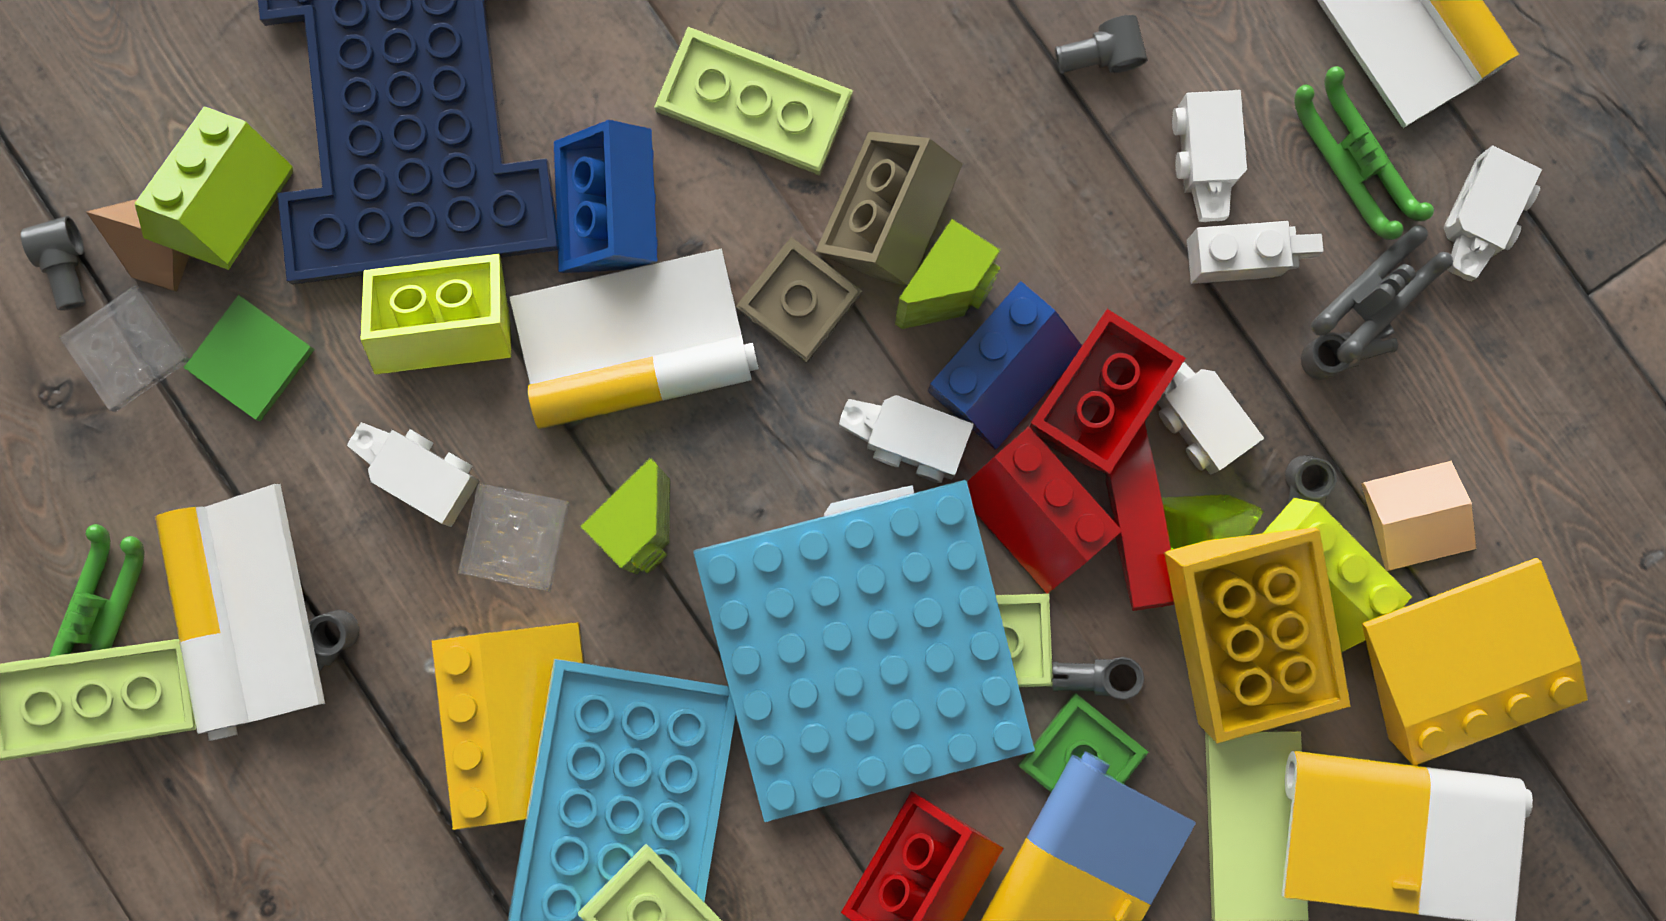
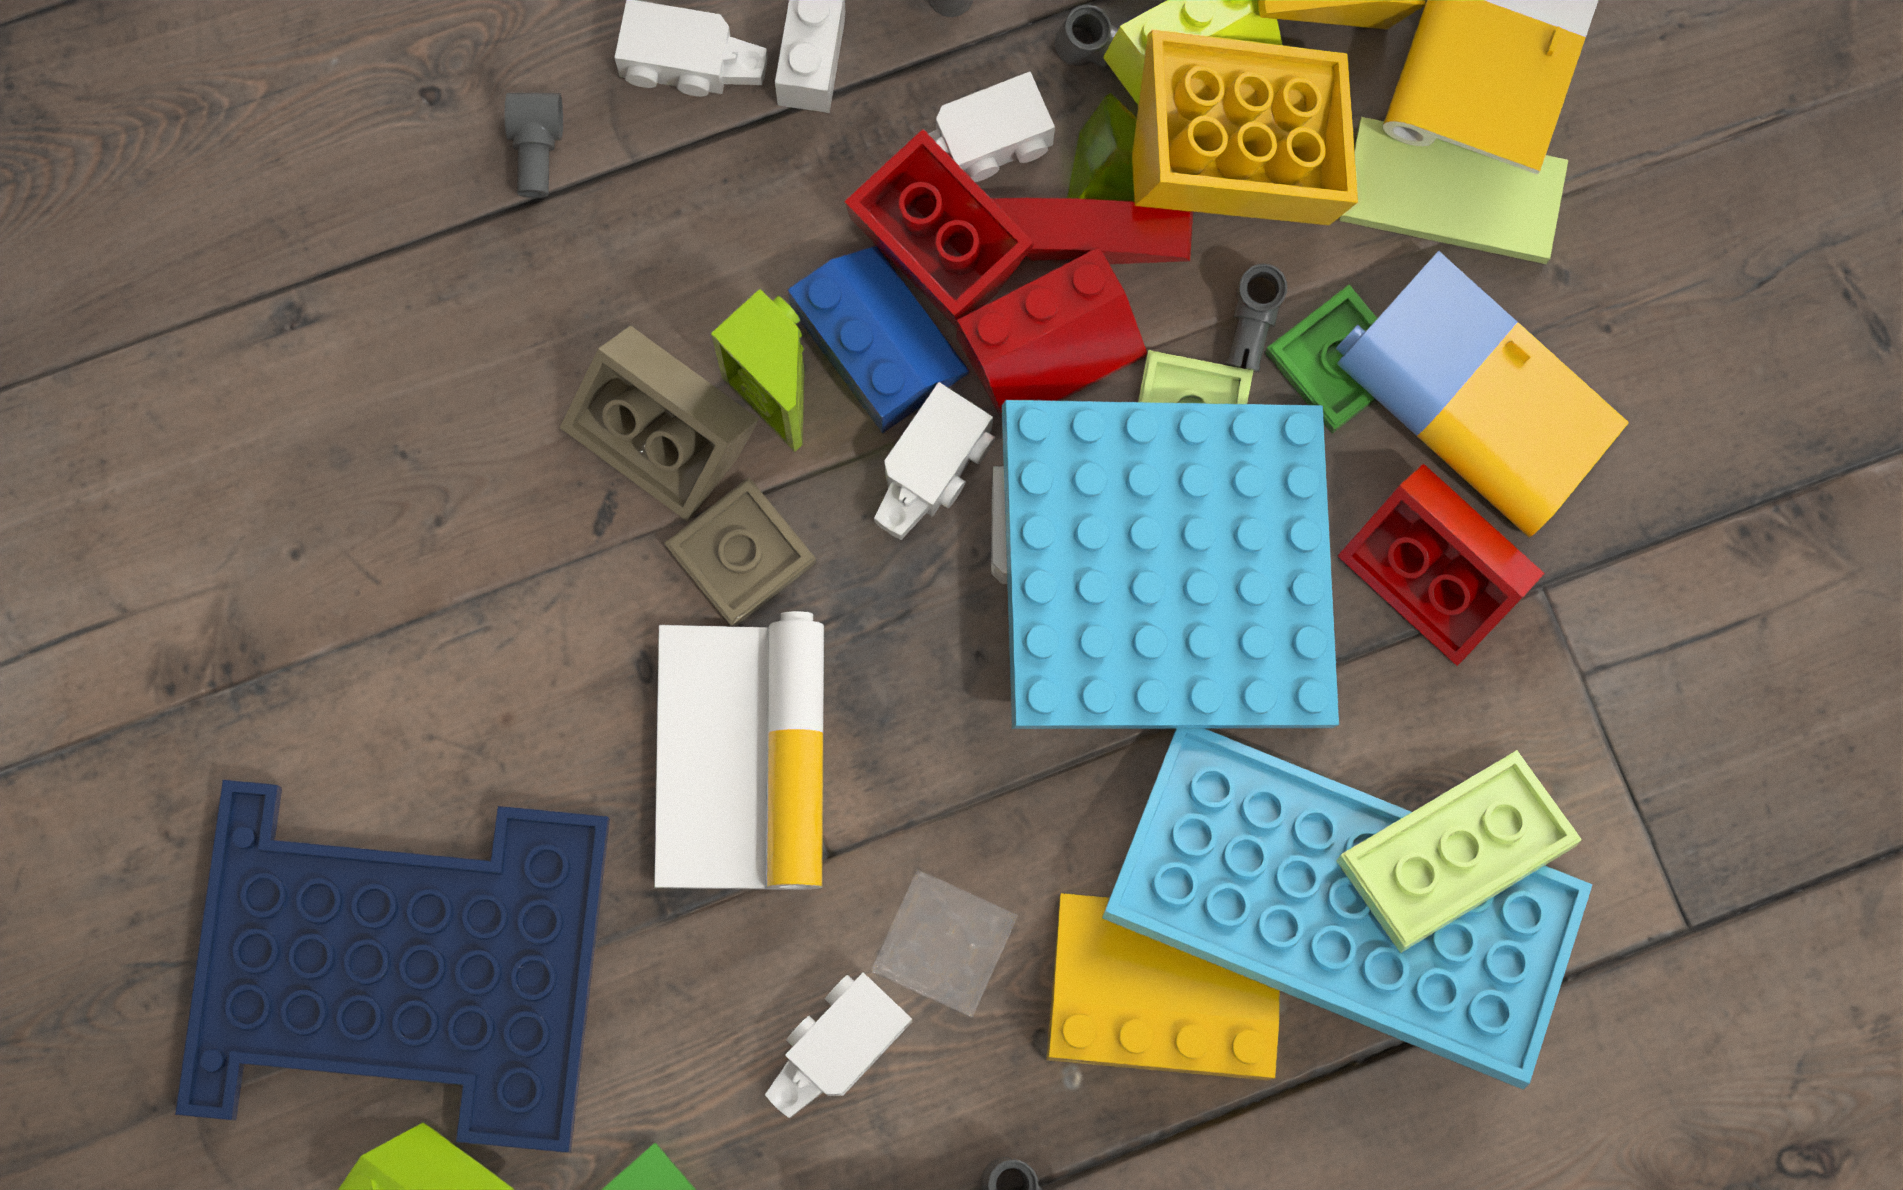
camera: 80 degrees left, 5 degrees down
(435, 314) = (654, 976): neon yellow slope -> none
(605, 198) = (564, 748): blue slope -> none
(635, 520) = (966, 781): lime slope -> none
(753, 100) = (487, 551): yellowish green tile -> none

